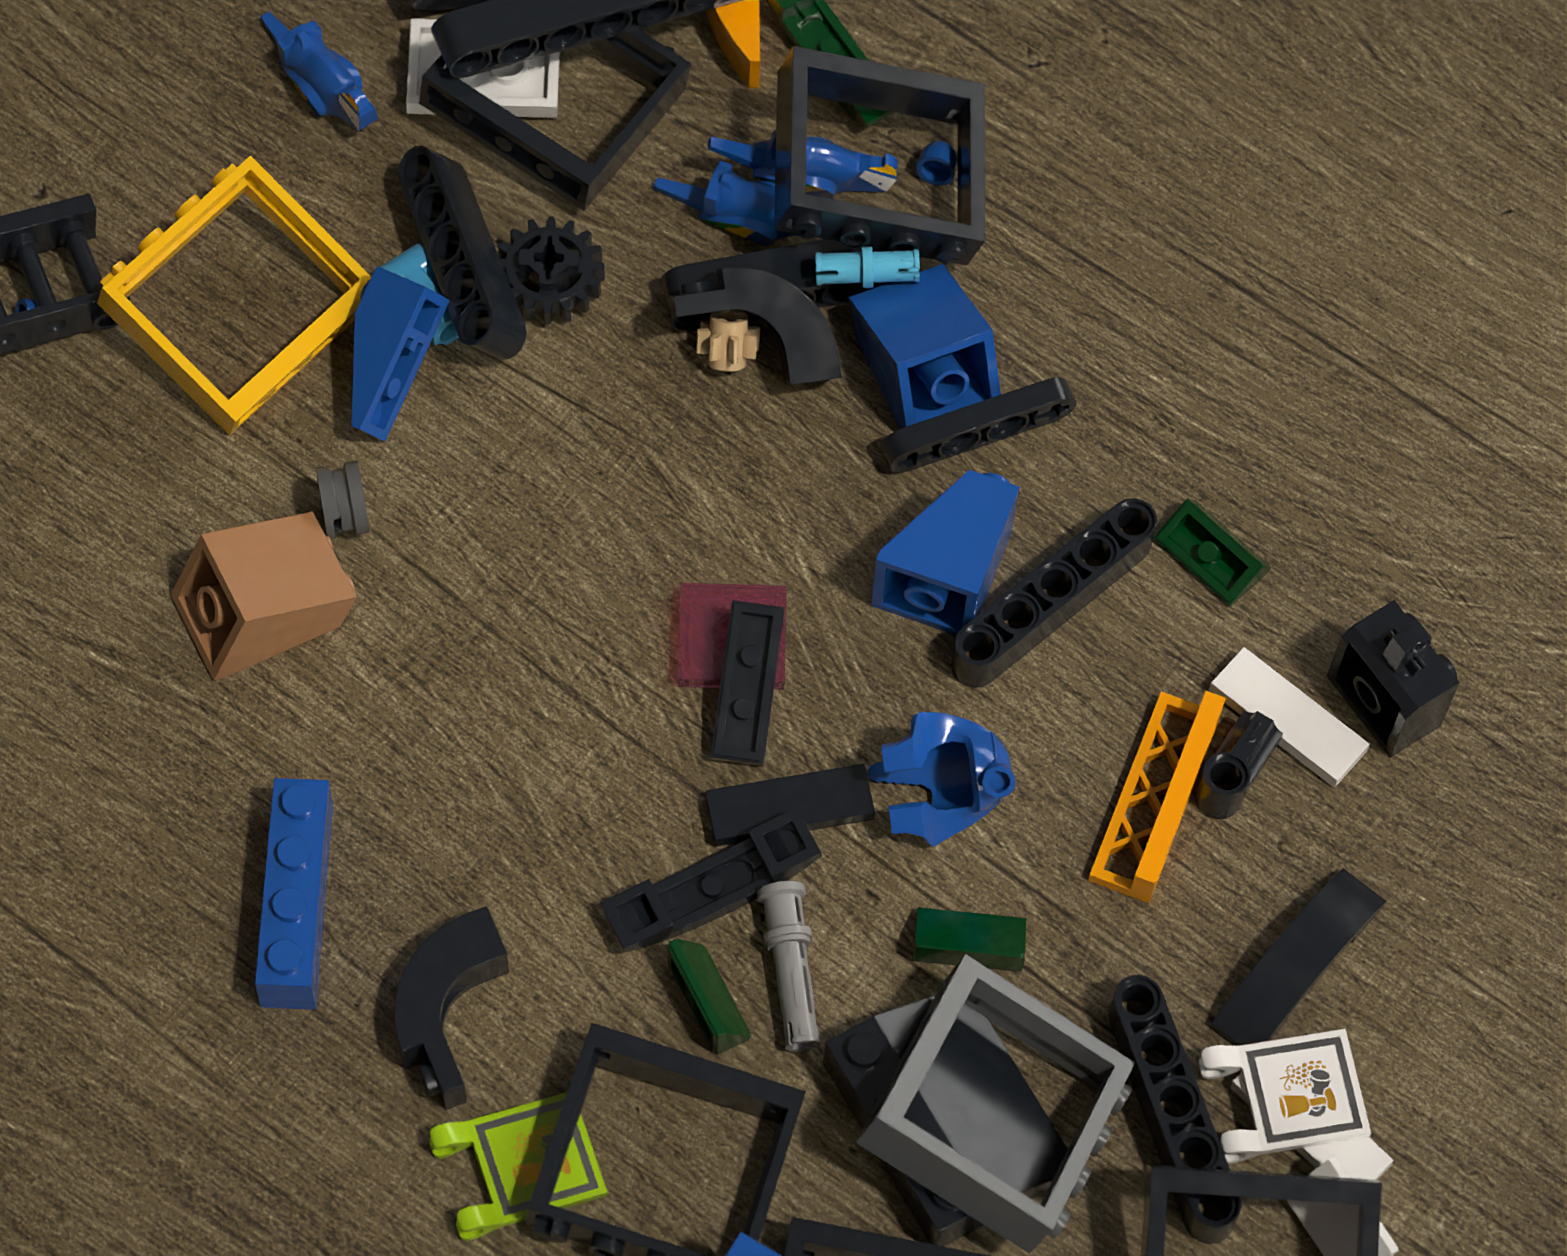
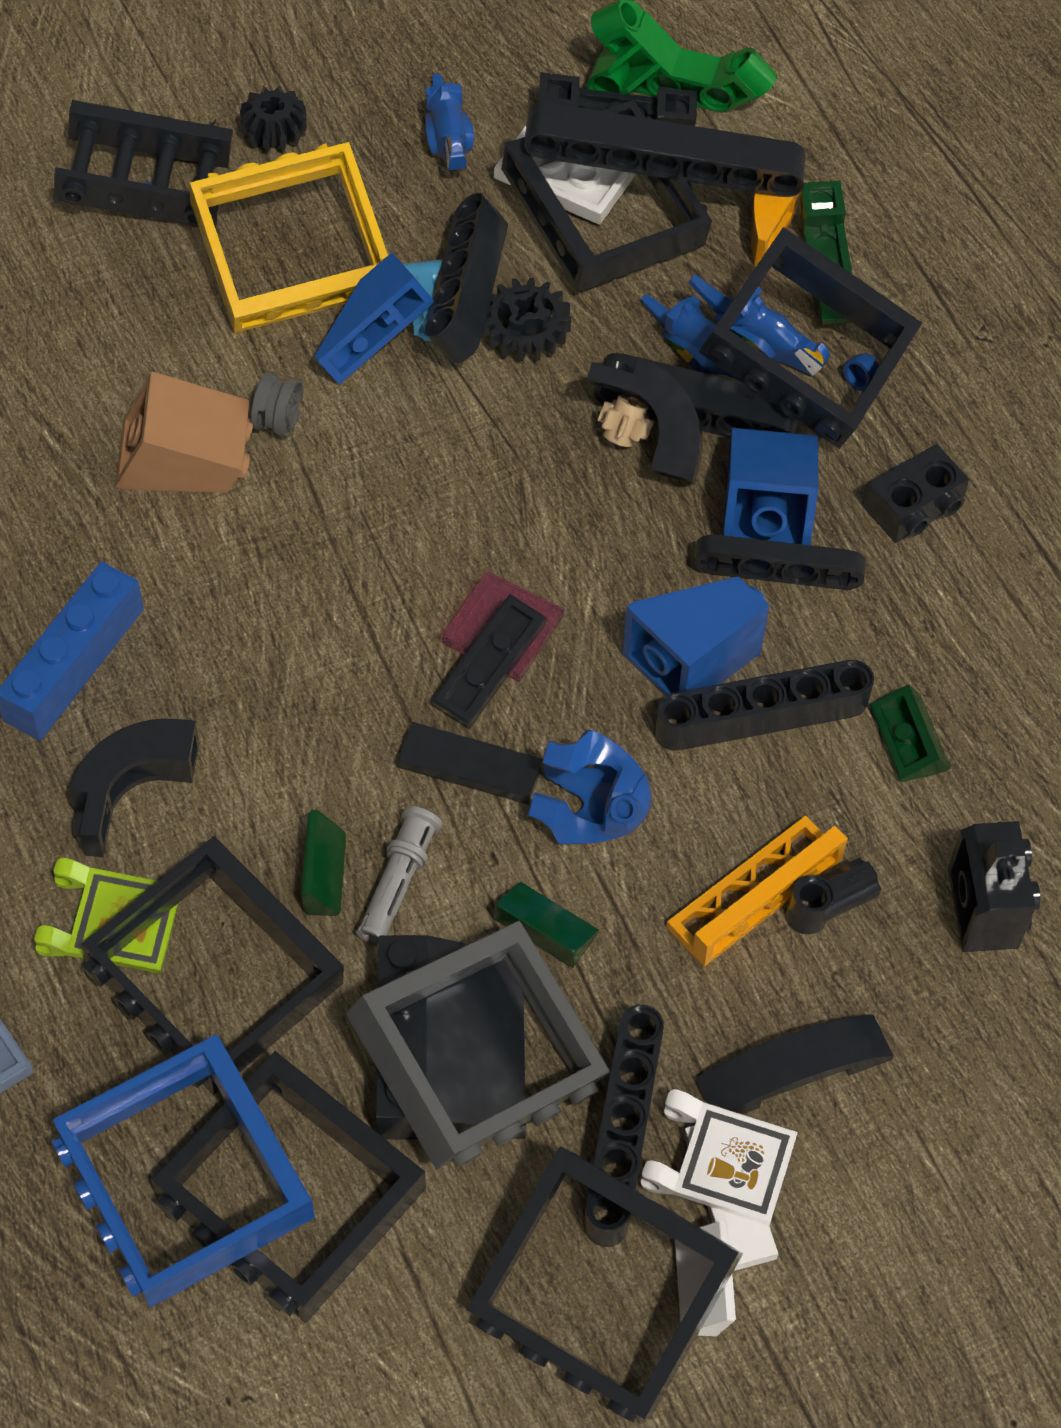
camera: 30 degrees right, 5 degrees down
(118, 156) = (273, 119): none -> black gear
(713, 886) = (372, 793): black slope -> none
(867, 267) = (755, 410): medium azure pin -> none
(1070, 278) = (914, 487): none -> black brick
(1307, 728) = (903, 890): white tile -> none

